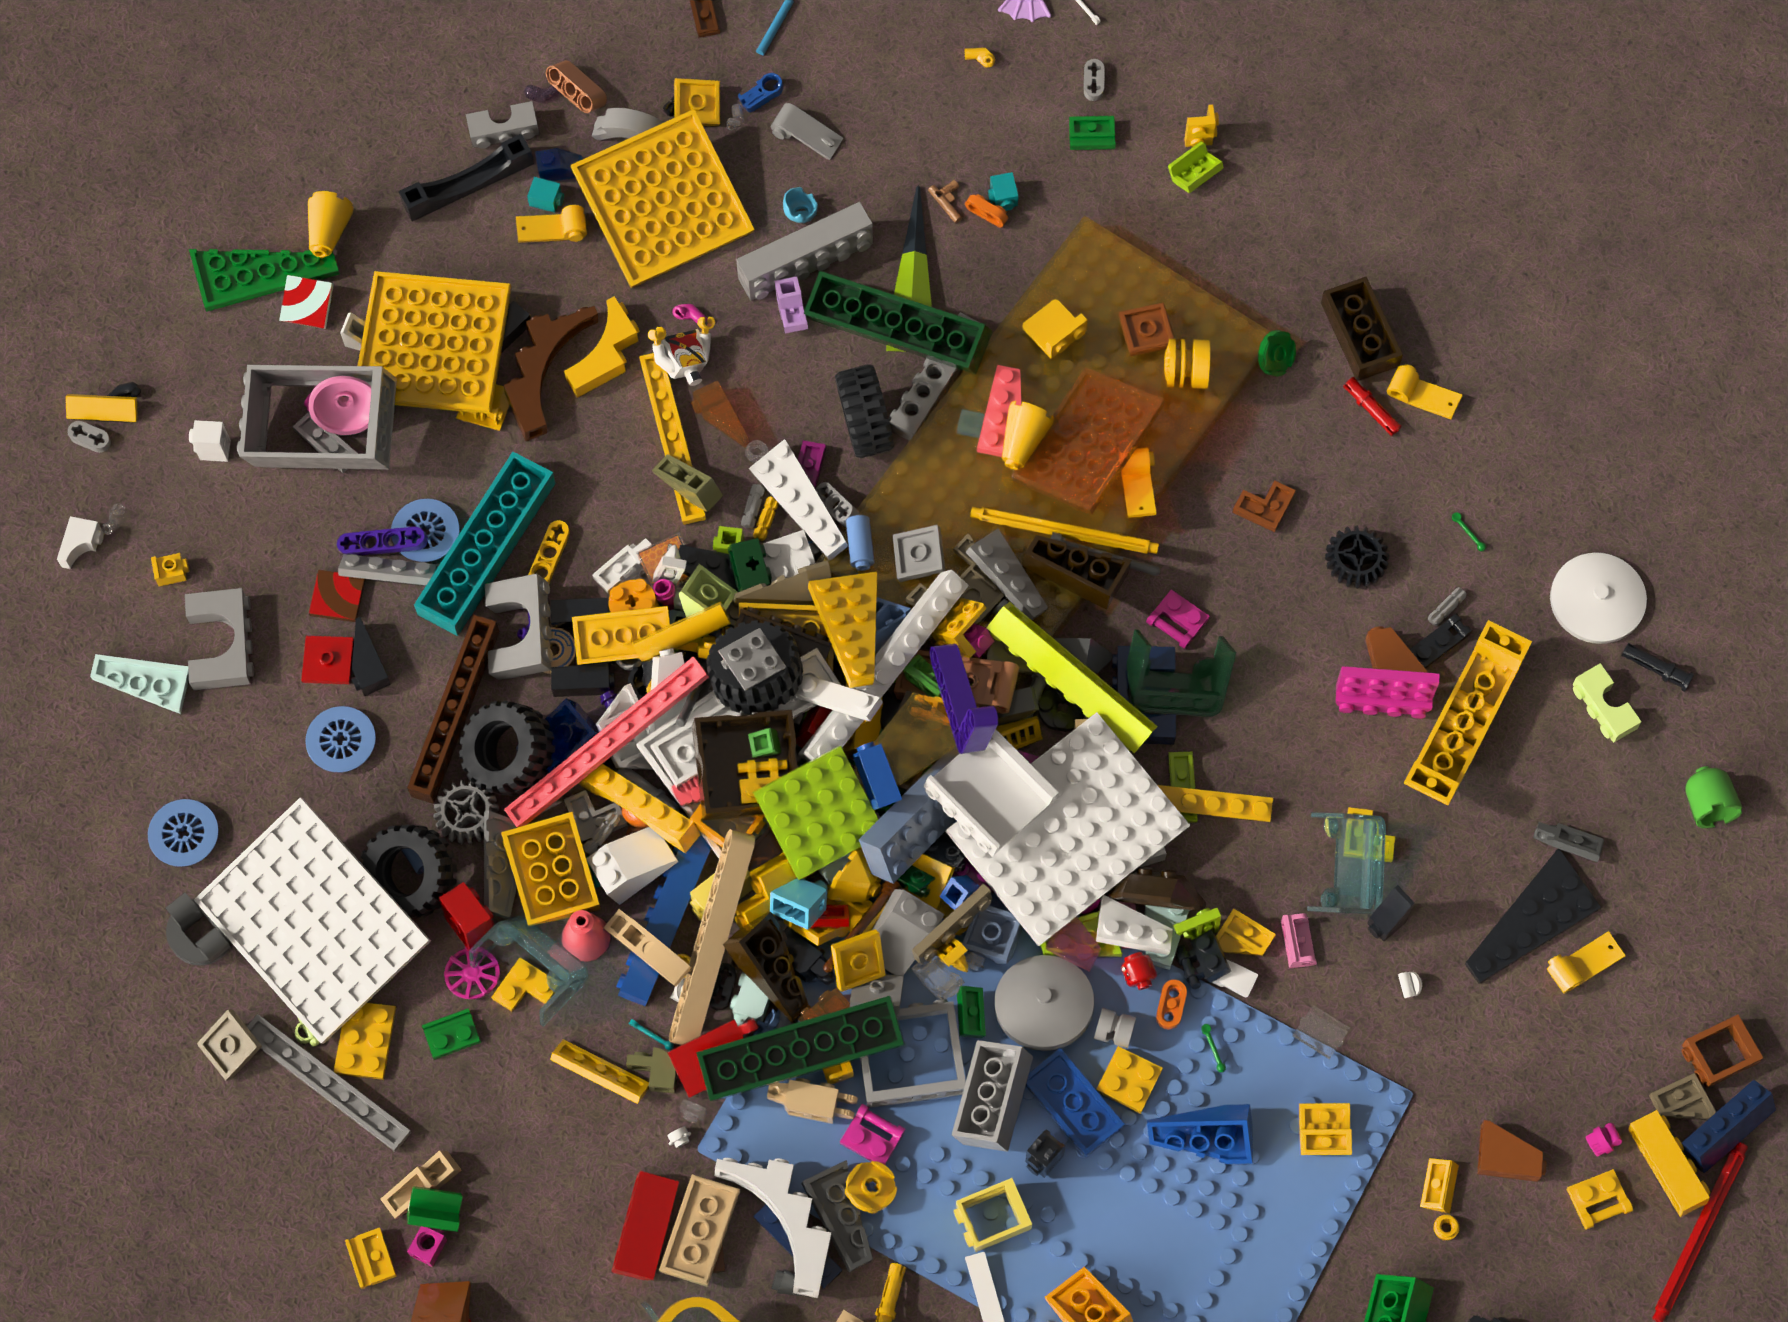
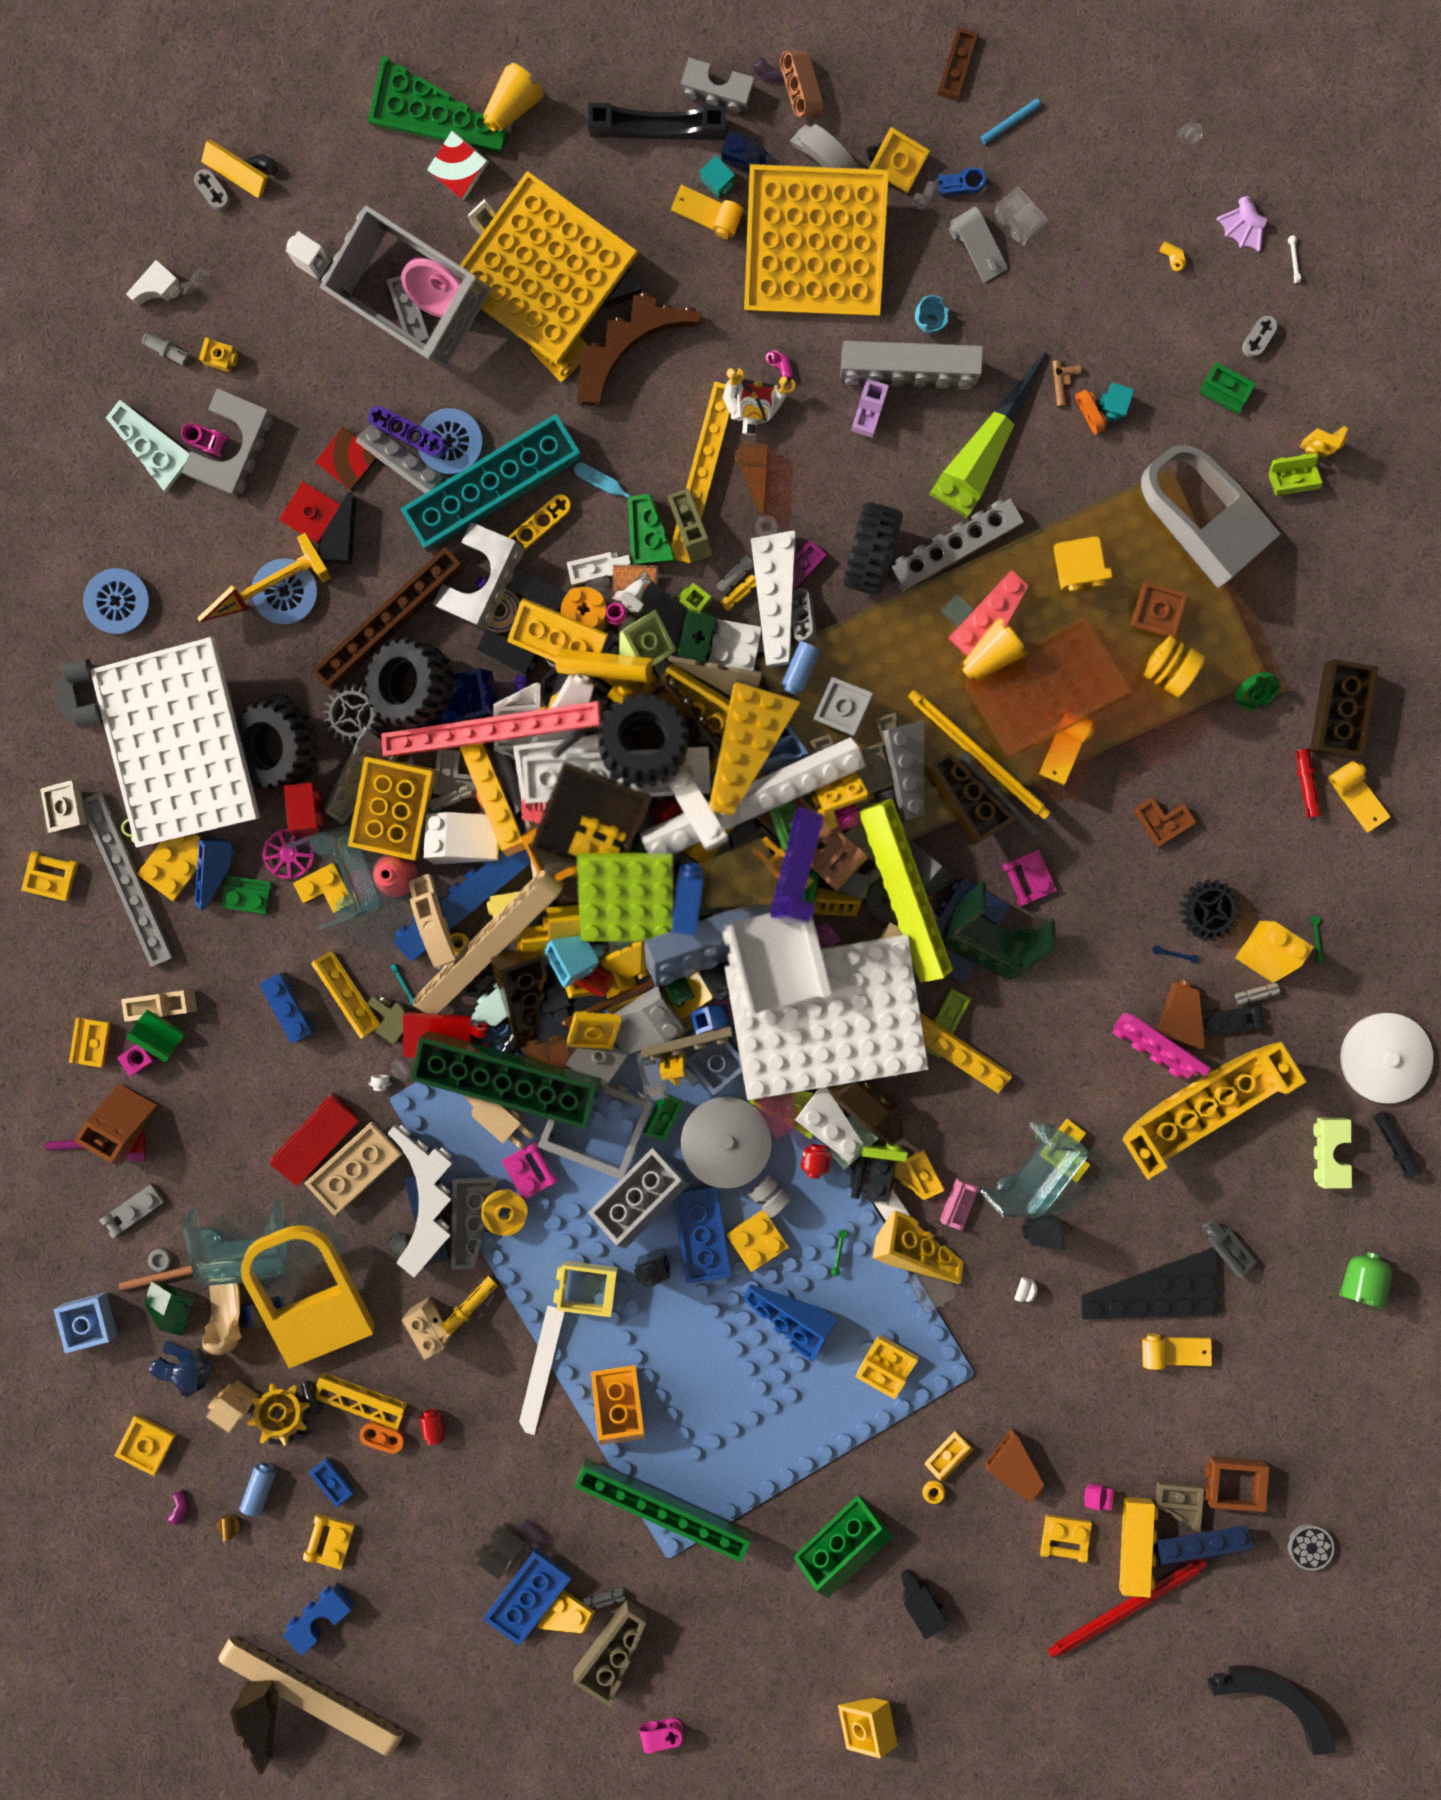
camera: 25 degrees right, 20 degrees up
(115, 589) = (165, 348): none -> light grey pin
(196, 646) = (208, 441): none -> dark pink piece
(251, 1128) = (46, 883): none -> yellow plate
(298, 768) = (234, 602): none -> yellow piece
(404, 1020) = (212, 865): none -> blue slope
(550, 1112) = (282, 1001): none -> blue arch
(582, 492) = (599, 479): none -> medium azure piece
(606, 359) = (682, 368): yellow arch -> none
(651, 511) = (647, 534): none -> green wing
(751, 659) = (638, 741): light grey hinge -> none
(764, 743) = (616, 809): bright green slope -> none
(829, 91) = (1020, 216): none -> clear brick
(898, 322) = (949, 480): dark green brick -> none
(1168, 246) = (1231, 536): none -> light grey window
(1171, 1005) = (826, 1200): orange plate -> none
(1277, 1005) = (910, 1248): none -> yellow wedge
(1333, 618) = (1157, 950): none -> clear blue hinge
(1434, 557) = (1273, 951): none -> yellow slope

